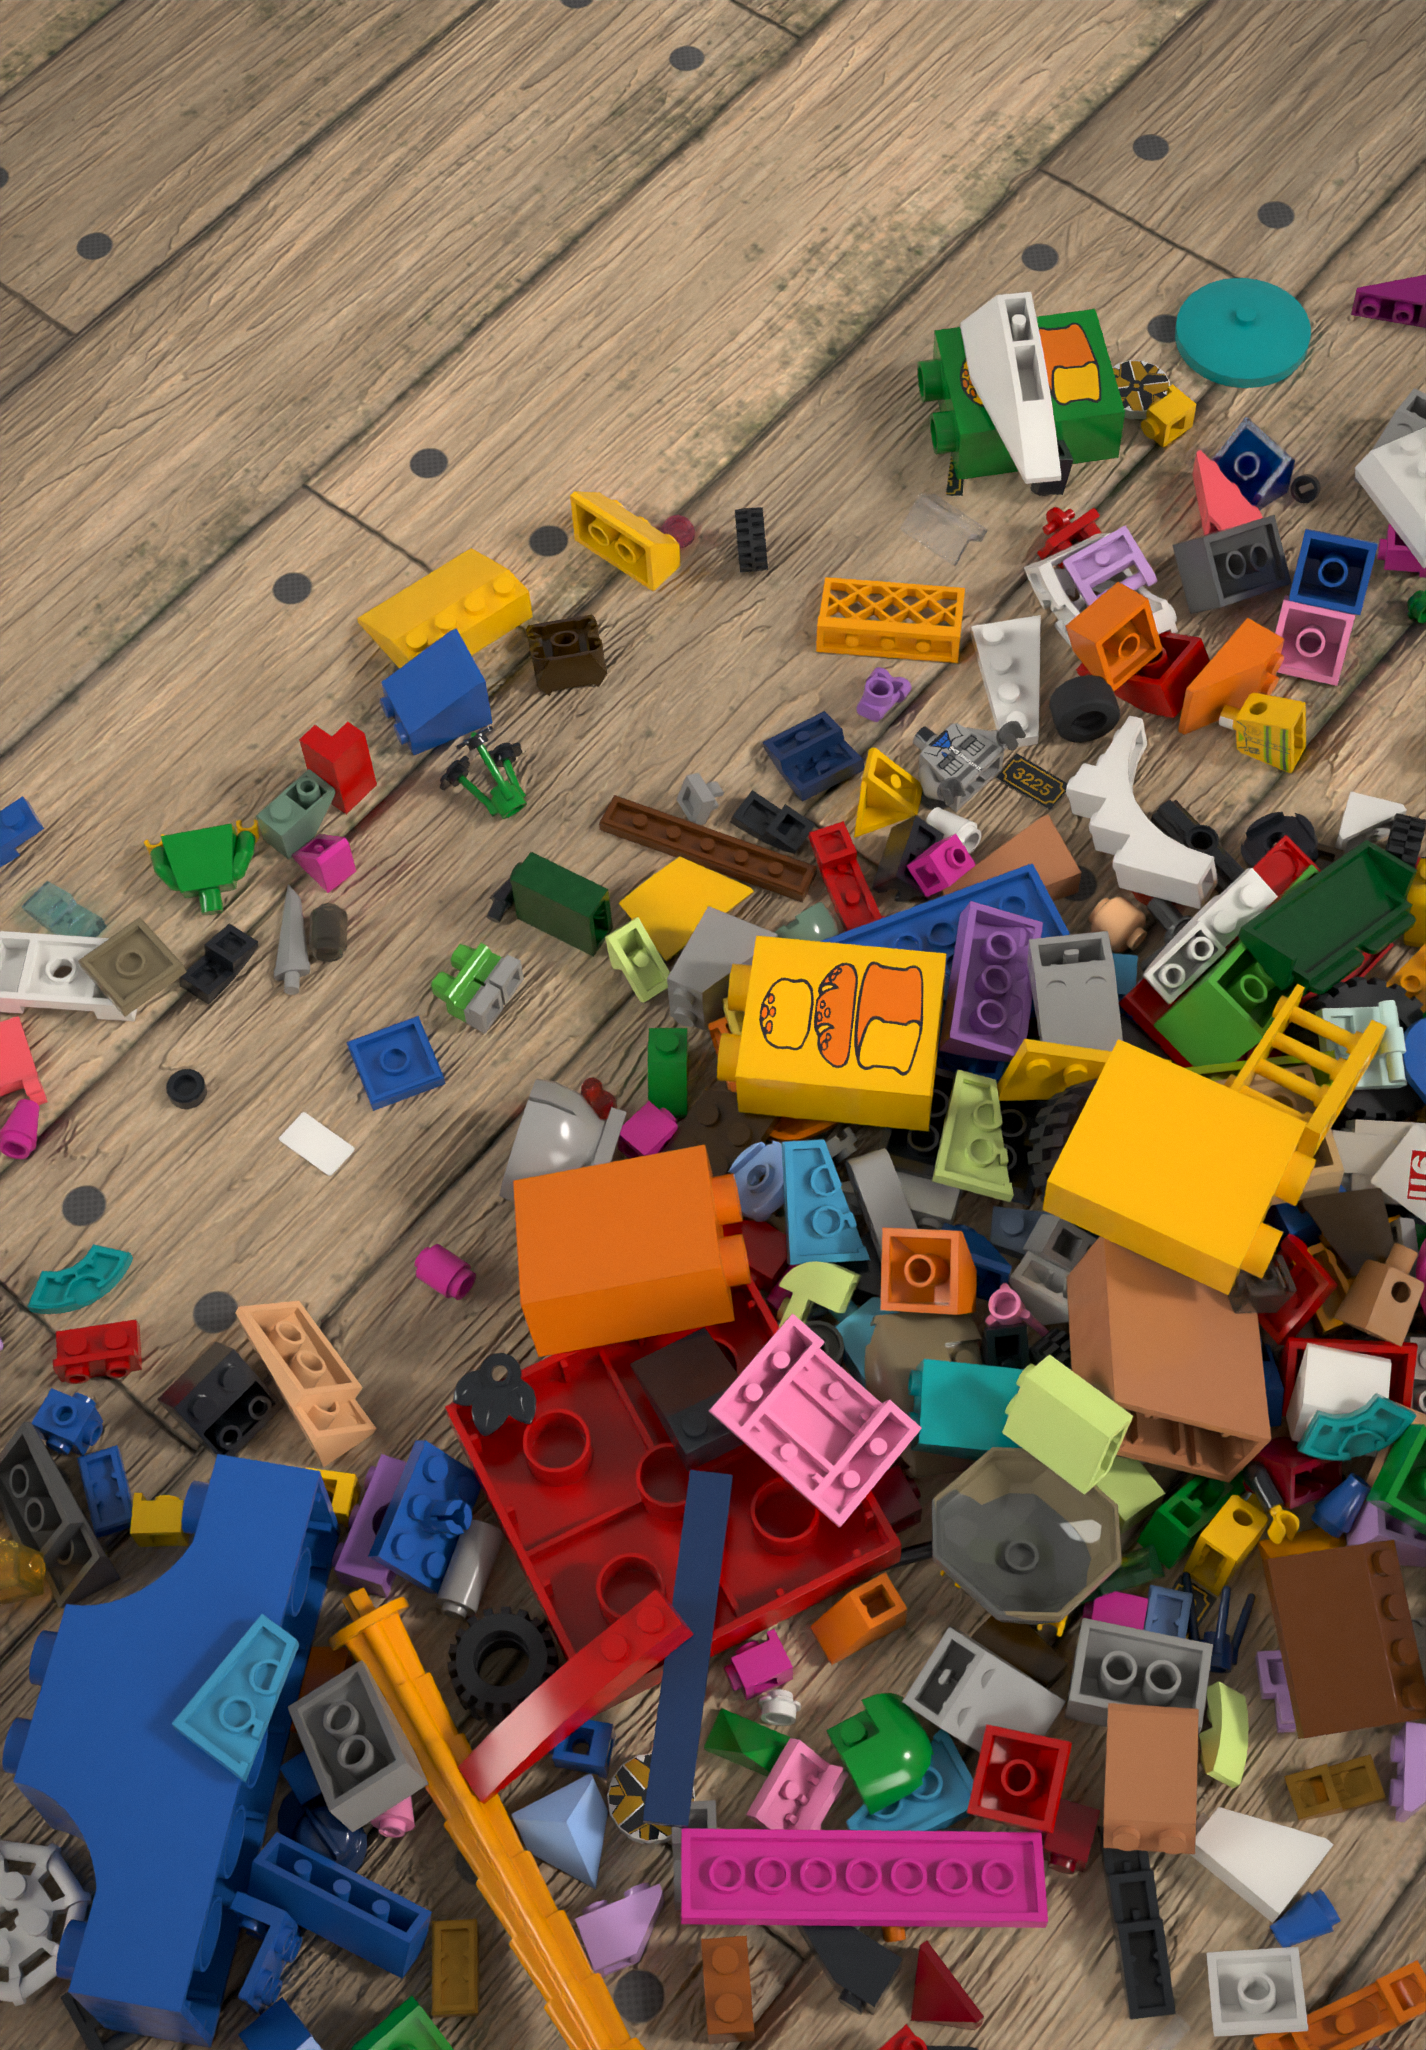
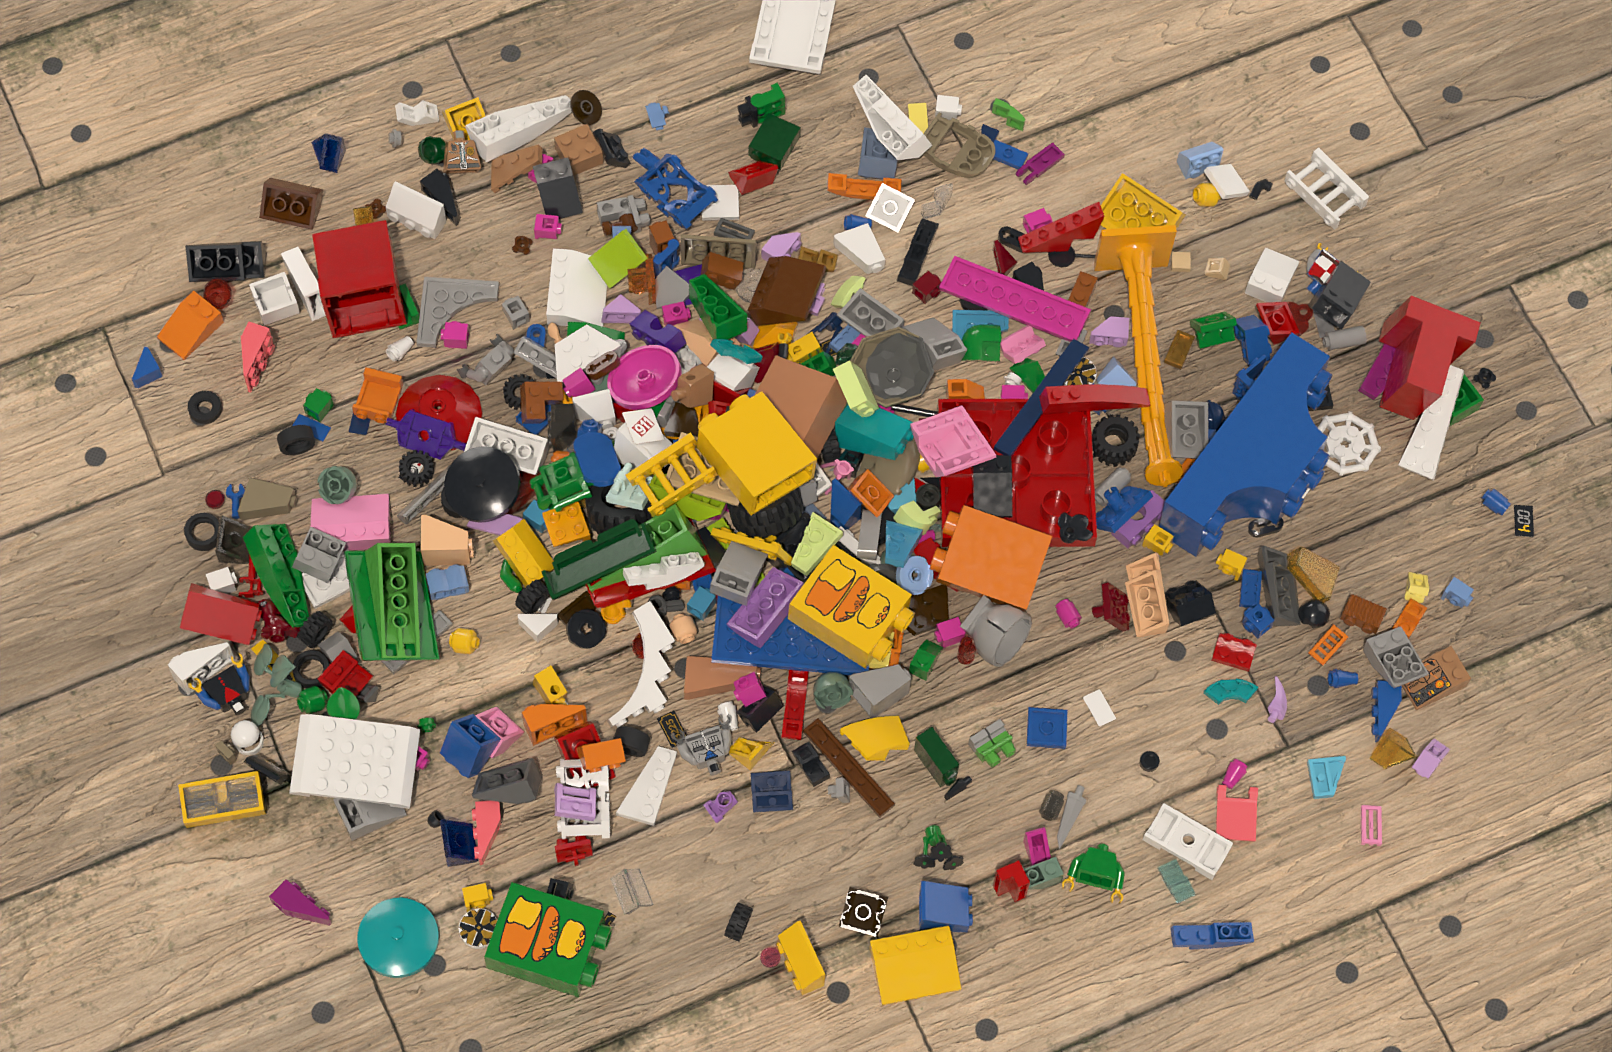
camera: 160 degrees left, 5 degrees up
(132, 966) = (1154, 819): dark tan plate -> none
(222, 962) = (1110, 818): black slope -> none
(239, 1698) = (1230, 423): dark azure wing -> none
(340, 1904) = (1212, 381): blue brick -> none
(359, 1312) = (1113, 608): none -> dark red plate
(638, 958) = (913, 716): yellowish green slope -> none
(889, 636) = (699, 835): light orange fence -> none
(1013, 383) = (562, 918): white wedge -> none
(1019, 1779) = (936, 305): red slope -> none
(1151, 1778) = (890, 279): nougat slope -> none
(1183, 828) = (623, 659): black piece -> none
(1341, 1506) = (753, 341): blue cone -> none

